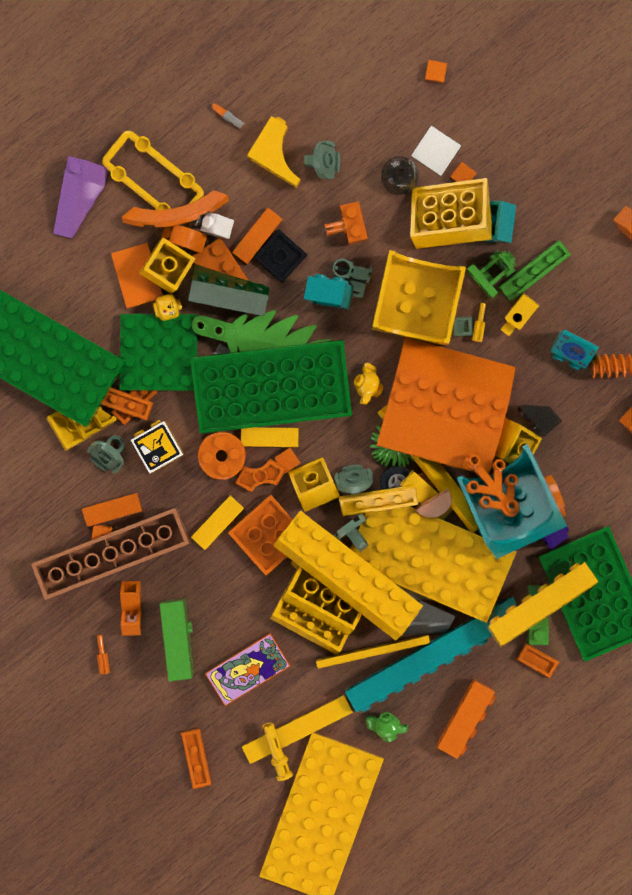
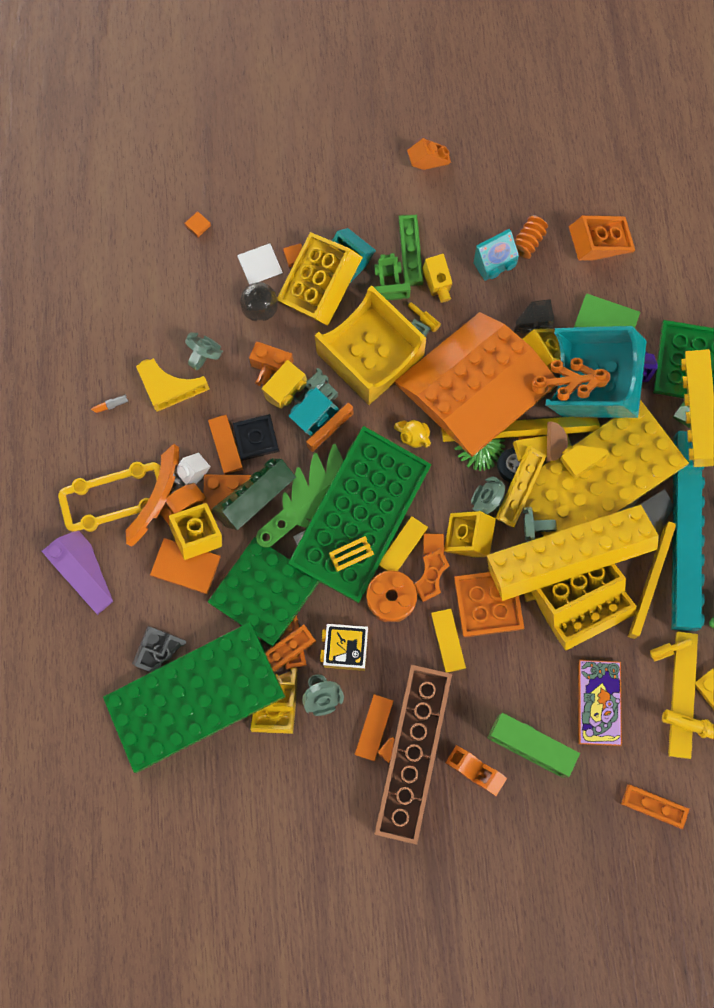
camera: 55 degrees left, 15 degrees down
(57, 299) = (156, 648): none -> dark grey slope
(102, 657) = (504, 830): orange axle -> none
(167, 307) = (230, 556): yellow head -> none
(217, 394) = (366, 547): none -> yellow tile
(323, 697) = (668, 649): none -> yellow axle
(328, 312) = (330, 427): none -> orange tile
(334, 253) = (284, 385): none -> yellow slope
(431, 535) = (582, 458): none -> yellow slope
(579, 478) = (603, 313): none -> bright green tile

